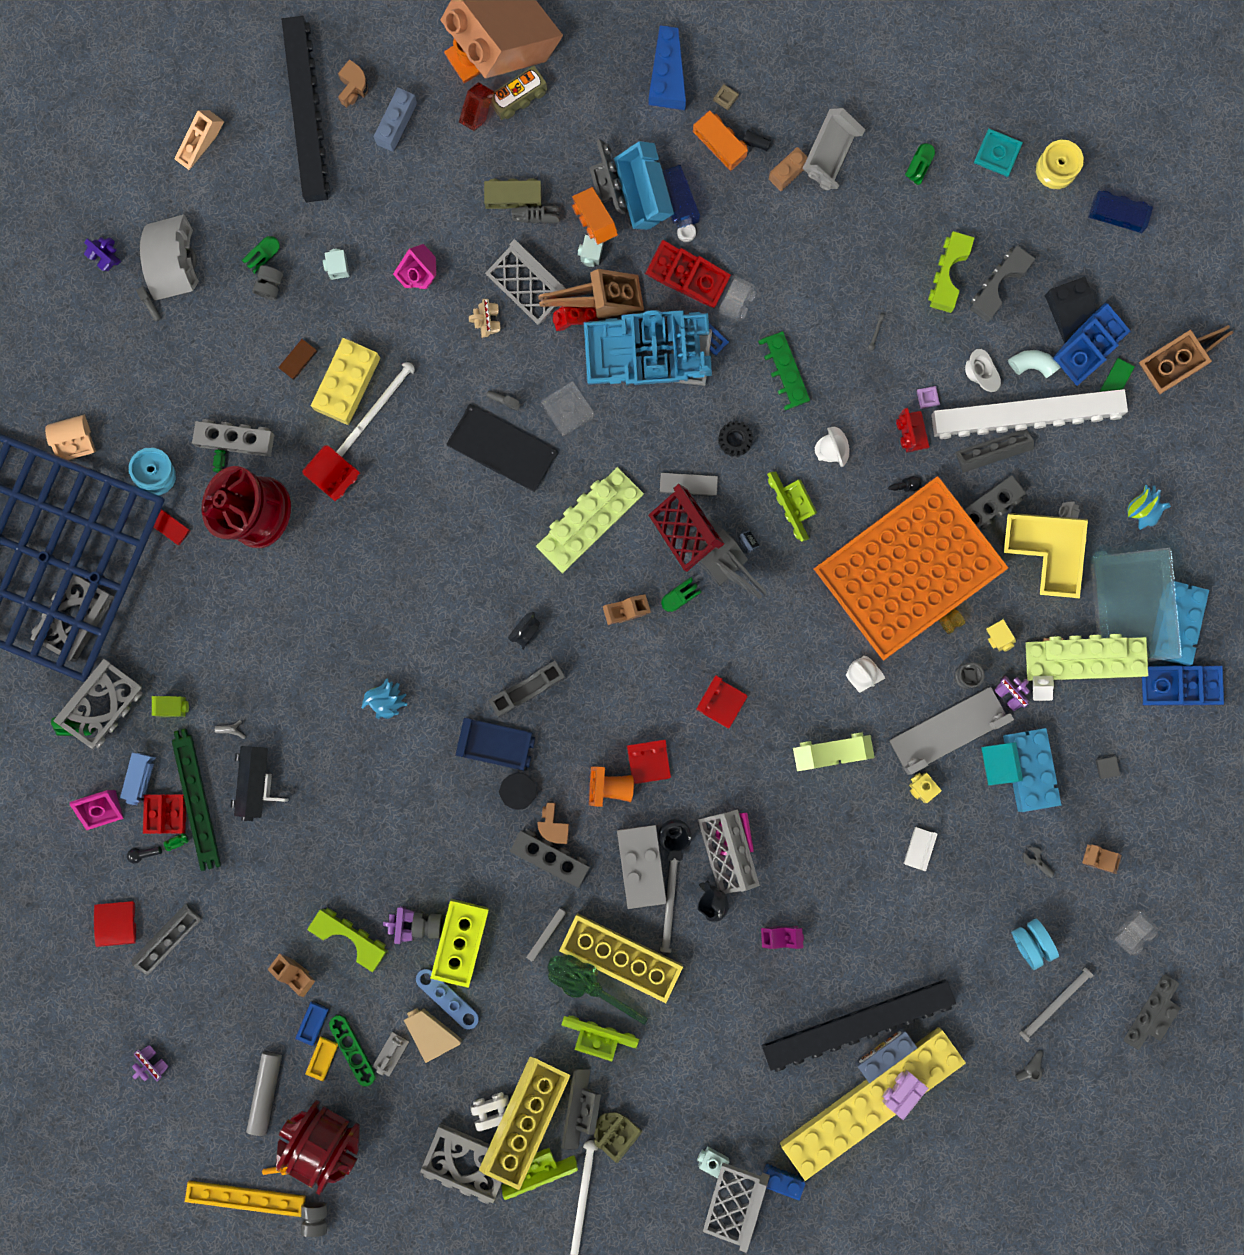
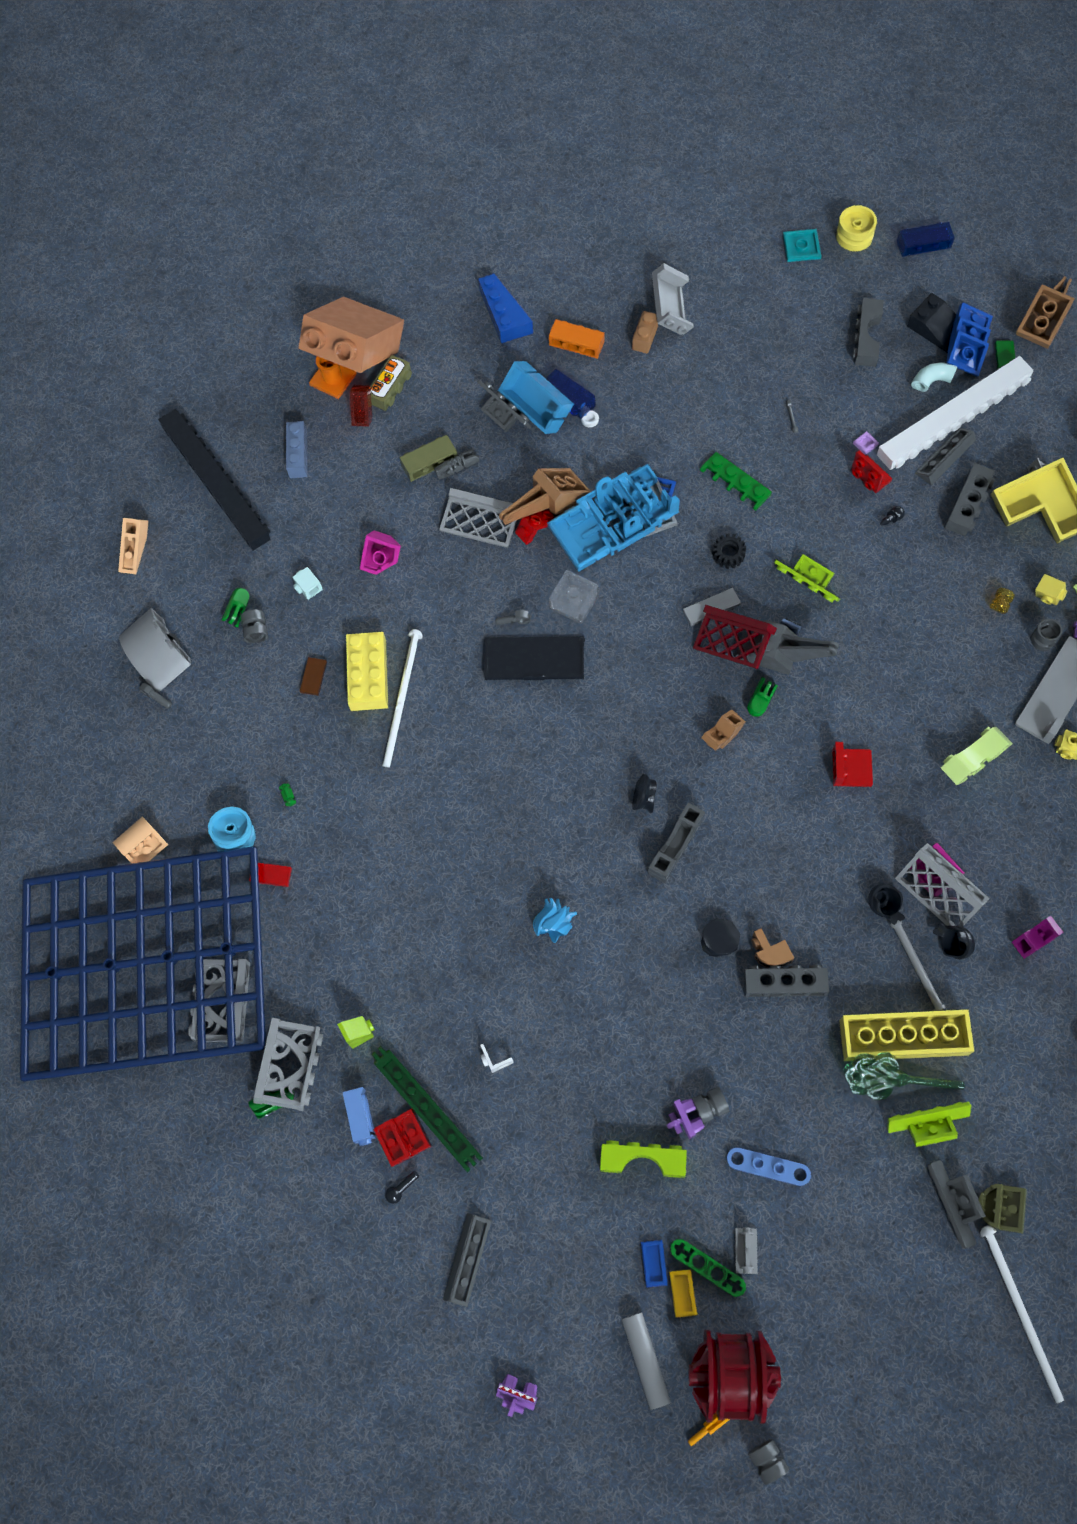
camera: 25 degrees left, 15 degrees down
(98, 809) = (335, 1166): dark pink slope -> none
(103, 249) = (99, 679): dark purple hips -> none
(114, 924) = (409, 1271): red slope -> none
(176, 842) = (427, 1158): green piece -> none
(203, 438) = (261, 771): light grey brick -> none
(231, 729) = (424, 1024): light grey bar -> none
(244, 1198) = (686, 1483): yellow tile -> none
(246, 507) = (321, 806): dark red wheel -> none
(250, 782) = (470, 1059): black brick -> none
(291, 973) = (609, 1222): medium nougat brick -> none
(330, 472) = (396, 751): red bracket -> none
(356, 83) = (246, 438): medium nougat brick -> none
(430, 1034) = (773, 1208): tan slope -> none
(452, 1138) = (904, 1296): light grey fence -> none
(467, 954) = (760, 1093): neon yellow brick -> none
(481, 1106) = (876, 1239): white brick -> none
(482, 318) = (458, 562): tan hips -> none
(495, 744) = (676, 908): dark blue panel -> none
(524, 1123) = (916, 1240): light yellow brick -> none
(542, 1171) = (953, 1286): lime bracket -> none
(546, 934) = (824, 1053): light grey tile -> none
(589, 519) = (644, 678): yellowish green plate -> none
(590, 252) = (519, 468): light aqua brick -> none
(594, 216) = (508, 438): orange brick -> none
(609, 787) = (795, 891): orange plant -> none
(641, 866) = (872, 944): light grey brick -> none
(649, 761) = (820, 849): red bracket -> none
(687, 274) = (610, 447): red slope -> none
(725, 97) = (561, 308): dark tan tile -> none
(737, 299) = (663, 445): clear brick -> none
(757, 141) = (605, 326): black pin -> none
(833, 447) = (813, 517): white helmet -> none
(864, 673) = (957, 681): white piece -> none
(910, 568) = (941, 576): orange plate -> none
(920, 163) = (747, 280): green arm -> none
(945, 293) = (828, 361): lime arch -> none
(982, 371) = (896, 401): white piece -> none

